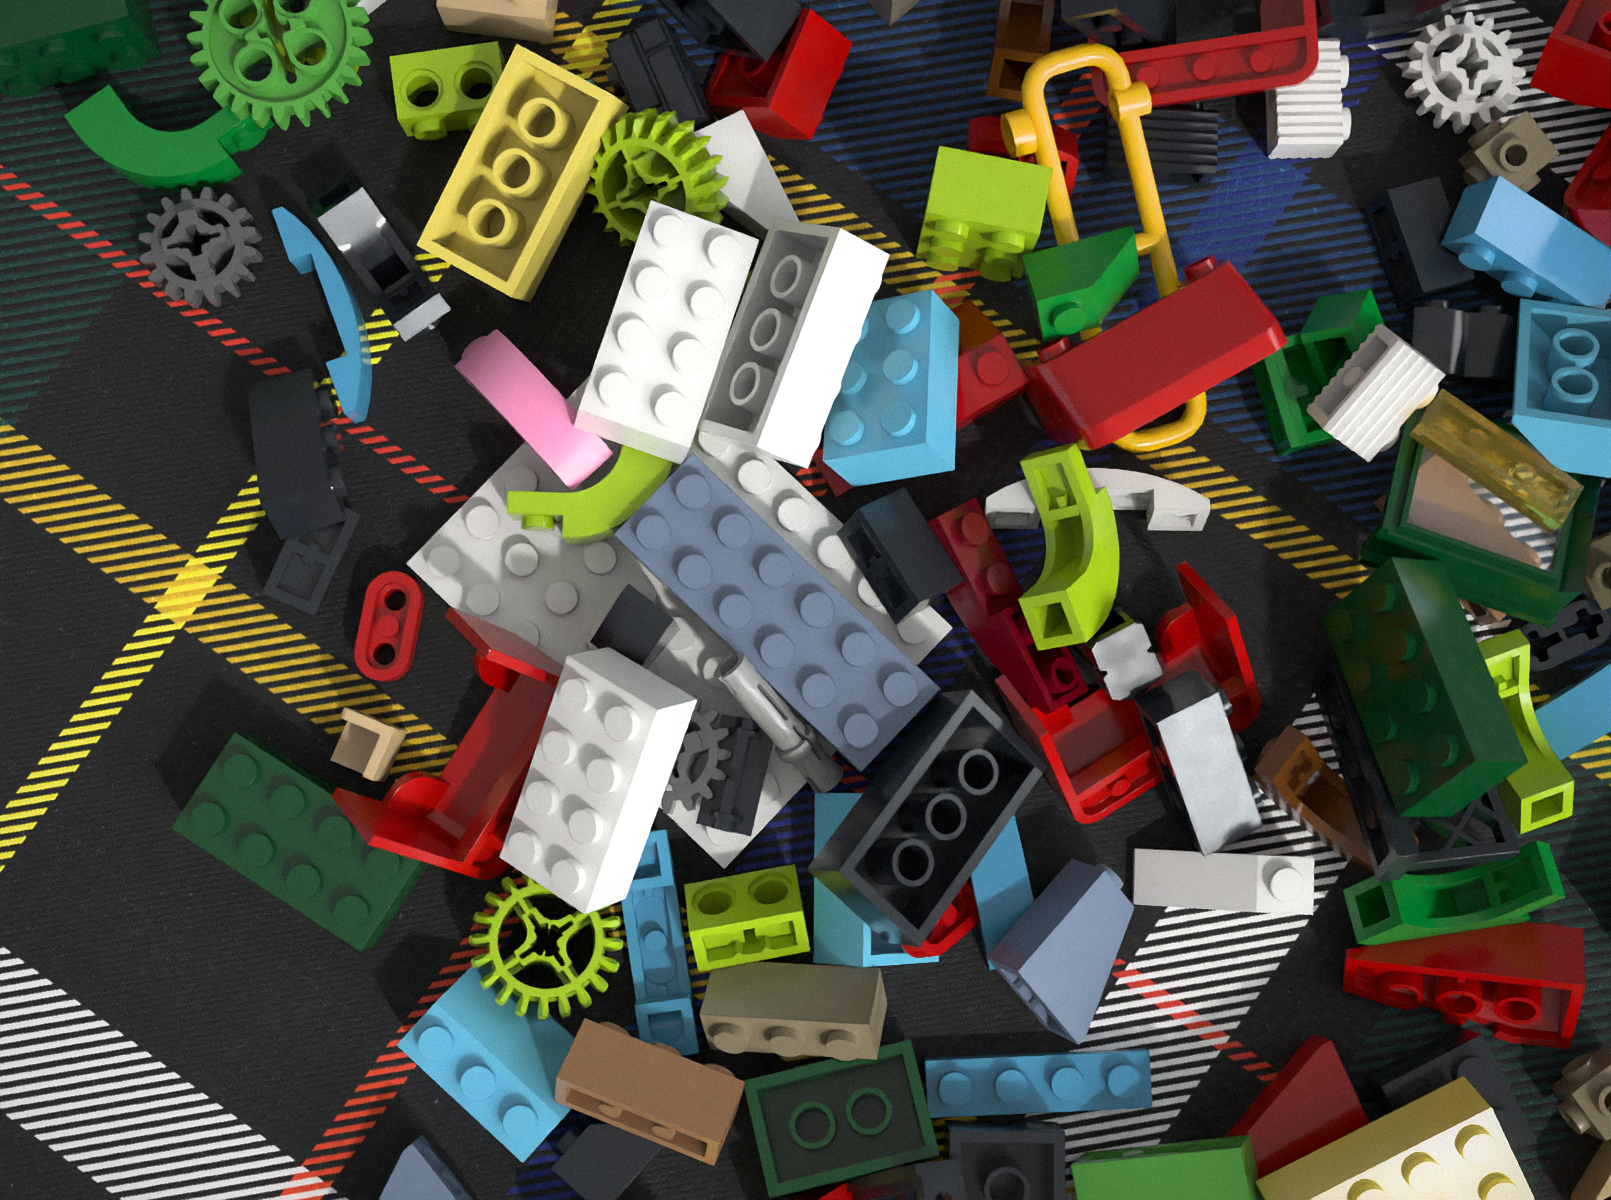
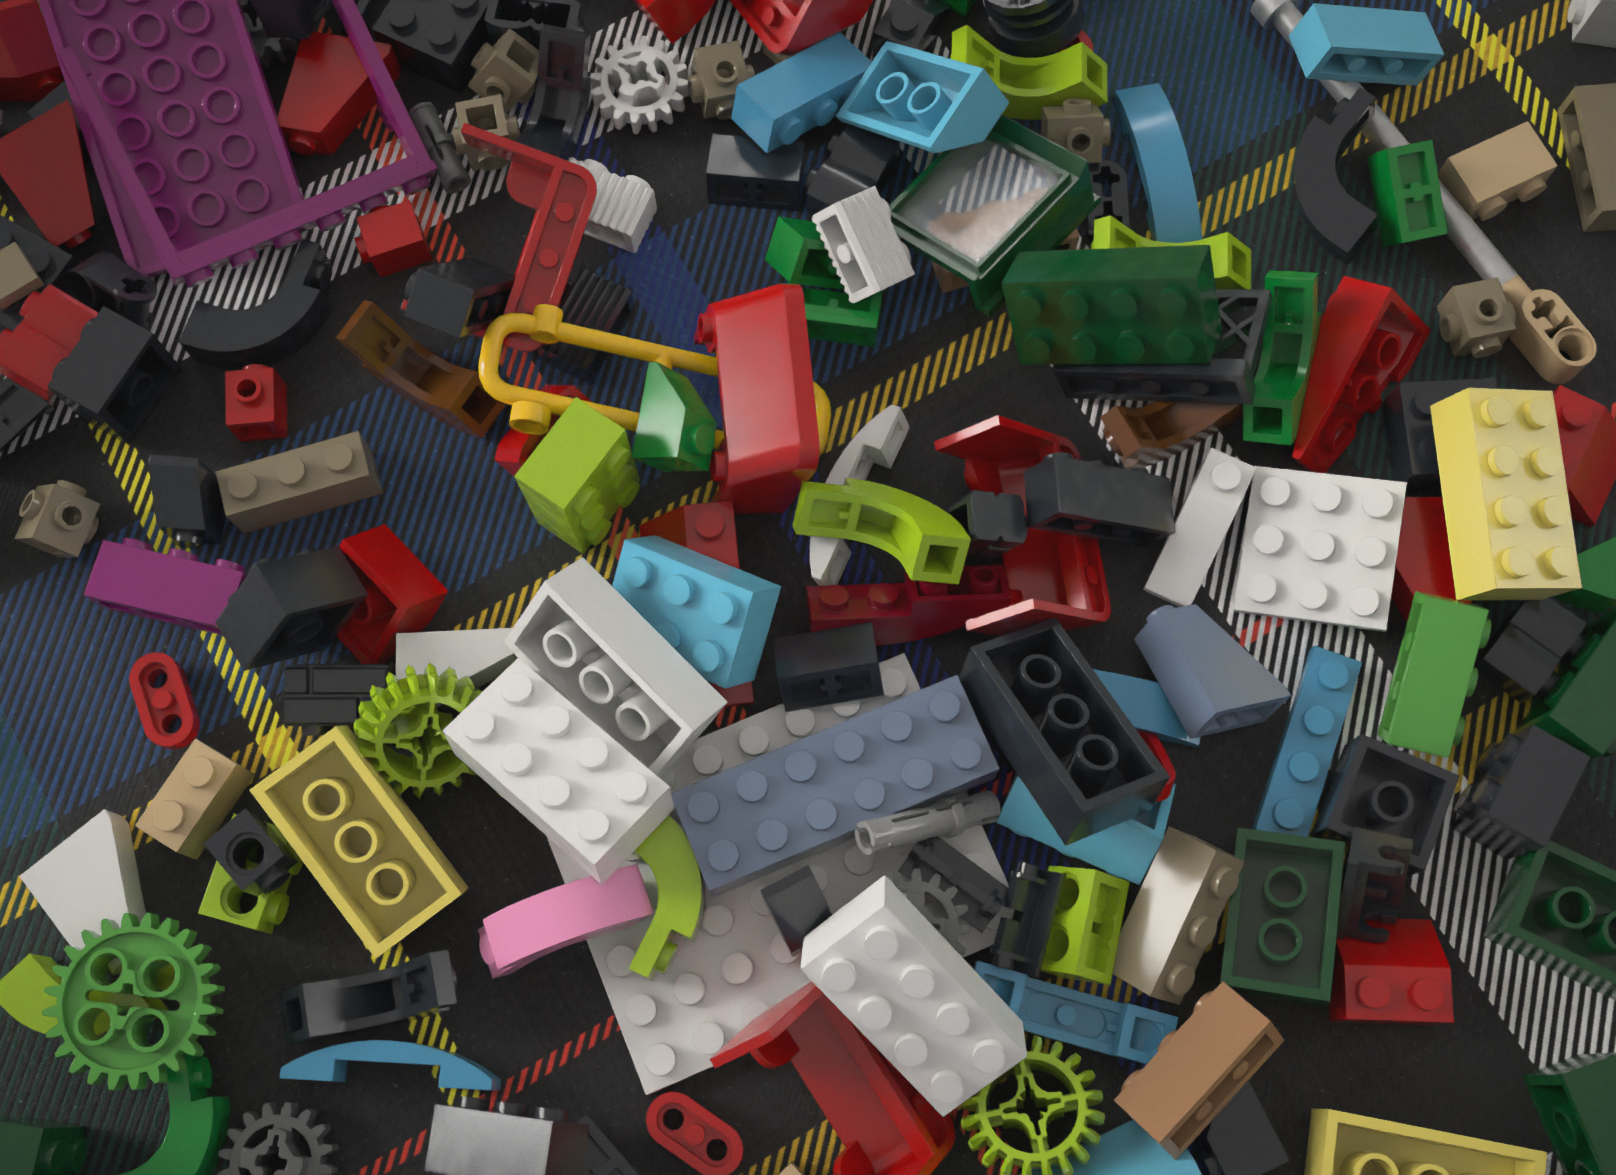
camera: 60 degrees left, 10 degrees down
(457, 56) = (237, 838): none -> black brick
(752, 860) = (1024, 939): none -> black hinge
(1256, 1017) = (1320, 548): none -> white plate
(1497, 461) = (957, 180): clear yellow plate -> none

